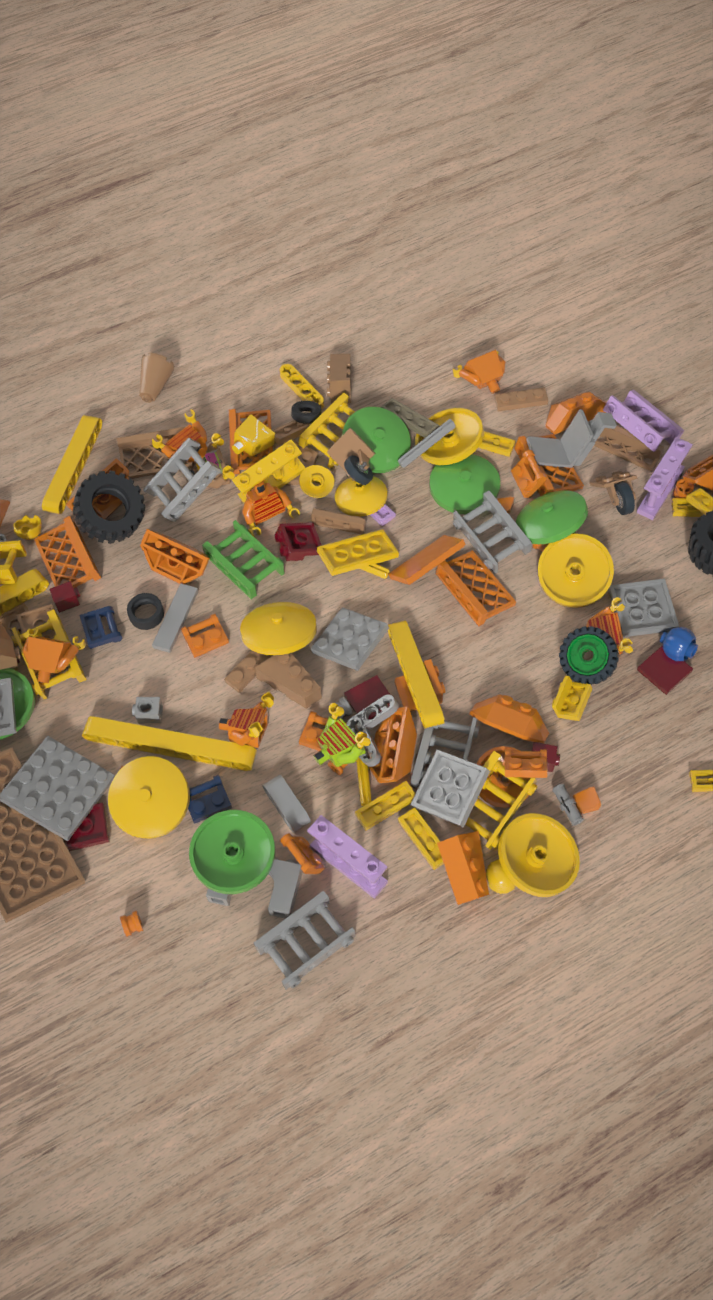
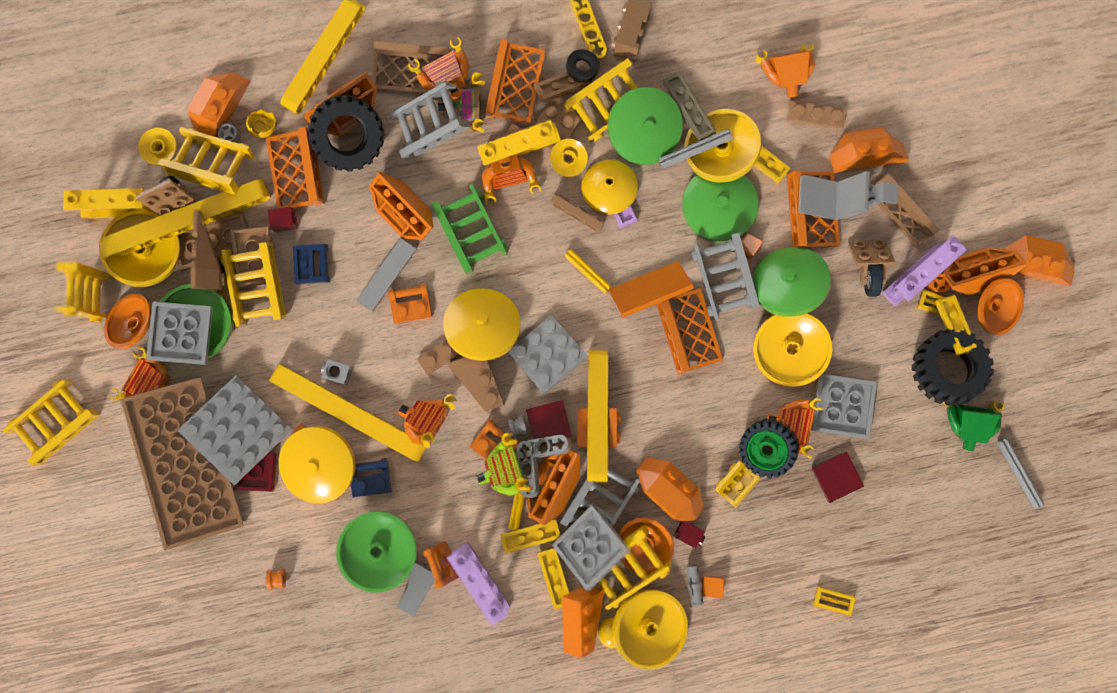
camera: 10 degrees right, 25 degrees up
(49, 654) = (250, 292): orange torso -> none
(142, 599) = (344, 260): black tyre -> none
(252, 437) = (515, 87): yellow torso -> none
(286, 803) = (440, 506): light grey beam -> none
(297, 540) = (530, 225): dark red plate -> none
(302, 918) = (407, 627): light grey fence -> none
(353, 457) = (613, 149): medium nougat plate -> none
(357, 552) = (584, 258): yellow tile -> none
(524, 476) = (787, 219): orange plate -> none
(526, 764) = (665, 555): orange plate -> none
(643, 420) = (943, 183): lavender fence -> none
(679, 643) = (861, 457): blue plant -> none

